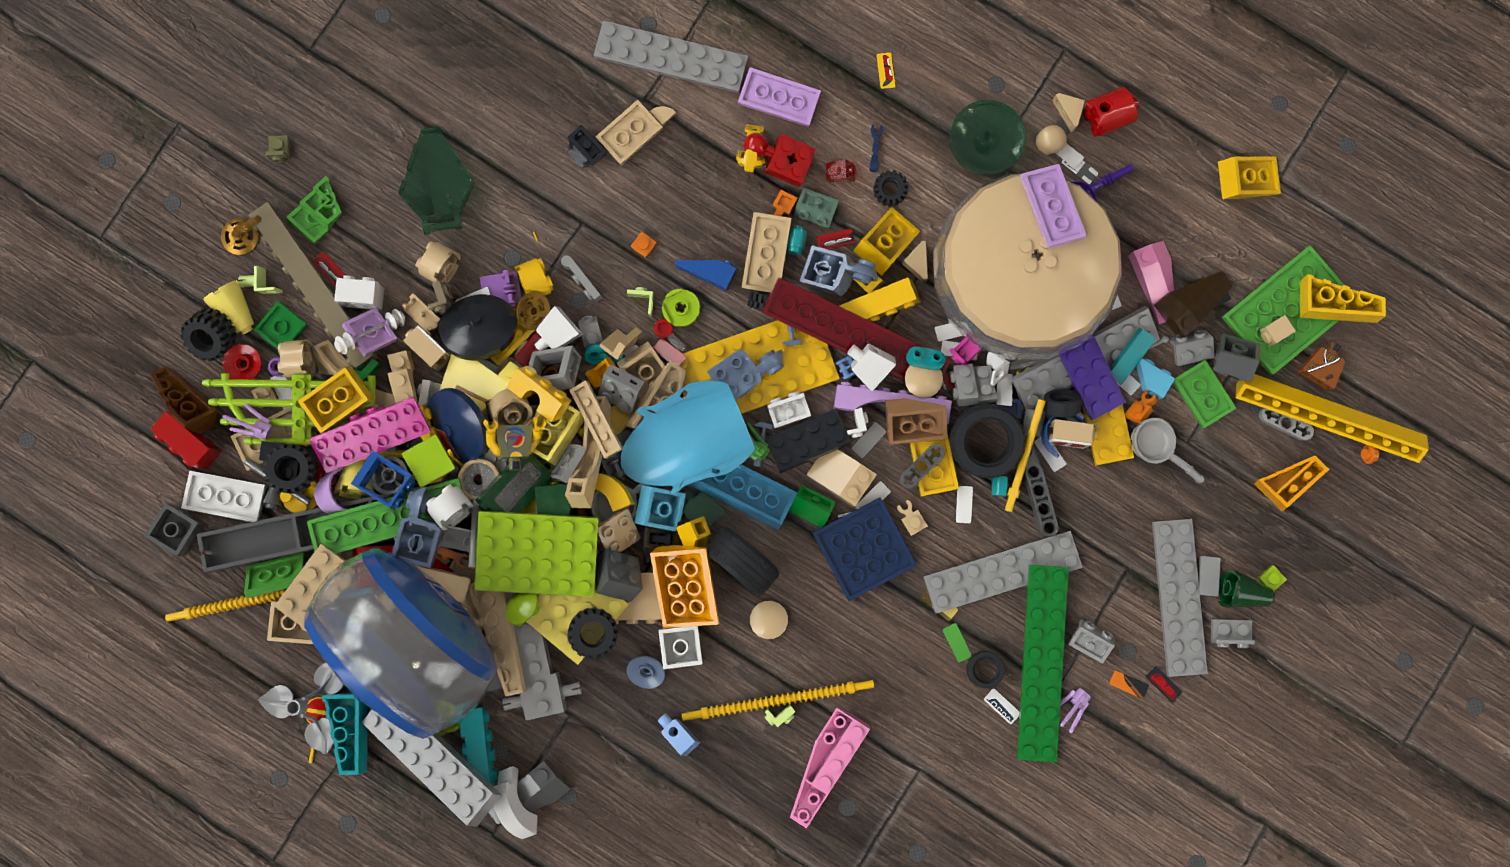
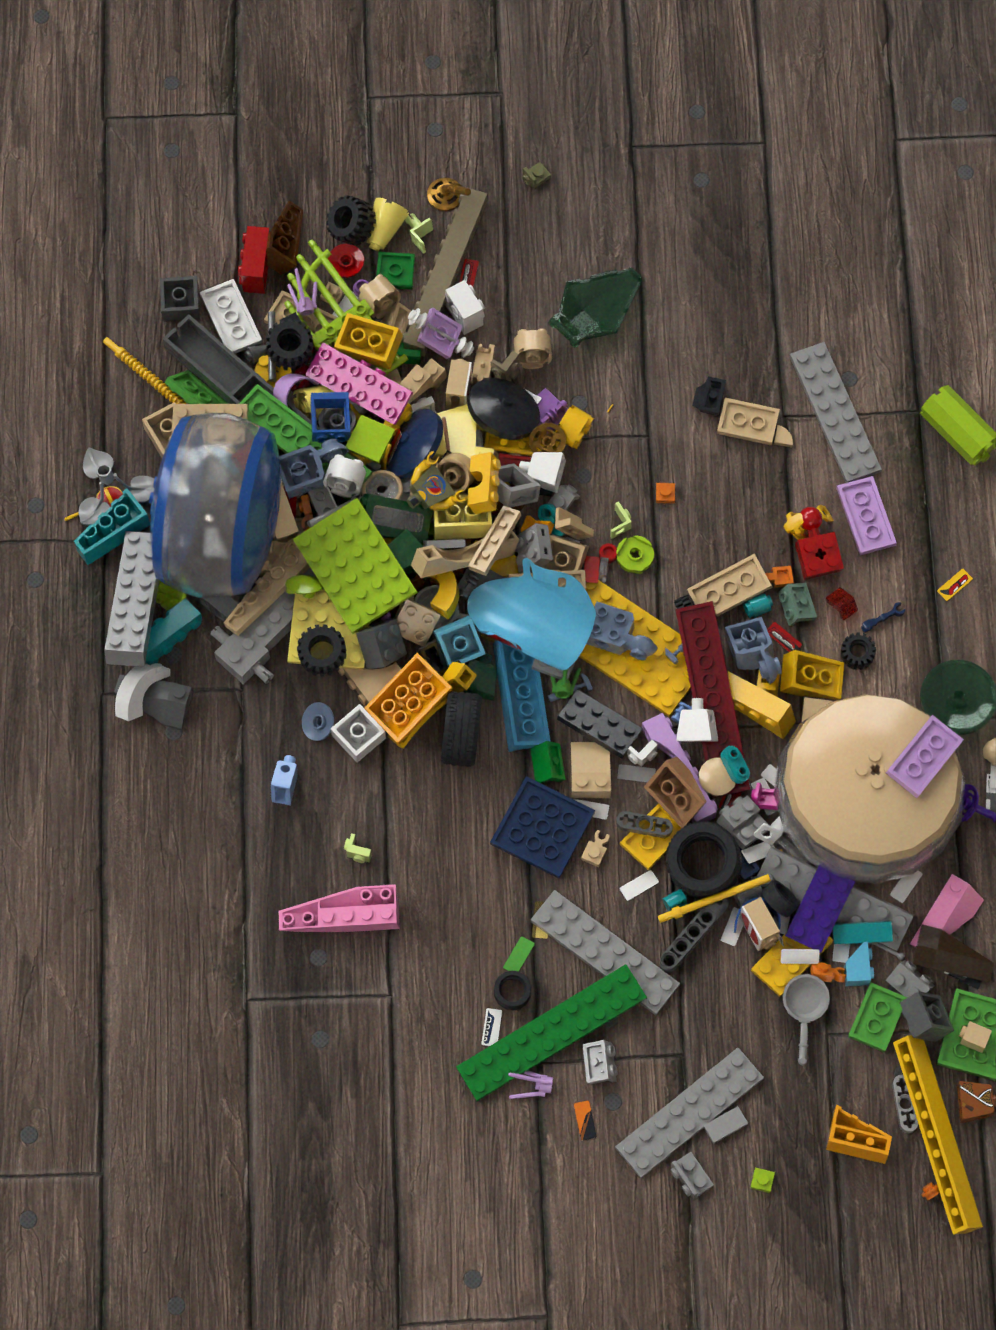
camera: 55 degrees right, 15 degrees down
(316, 212) = (505, 235): bright green slope -> none
(580, 278) = (601, 463): light grey plate -> none
(704, 713) = (317, 791): yellow hose -> none
(711, 271) = (683, 558): blue slope -> none
(768, 619) = (429, 791): tan dish -> none
(789, 409) = (614, 691): white bracket -> none
(1117, 420) = (799, 956): none -> white sticker
(1164, 684) = (606, 1149): sticker -> none
(1242, 591) = (733, 1159): dark green cone -> none

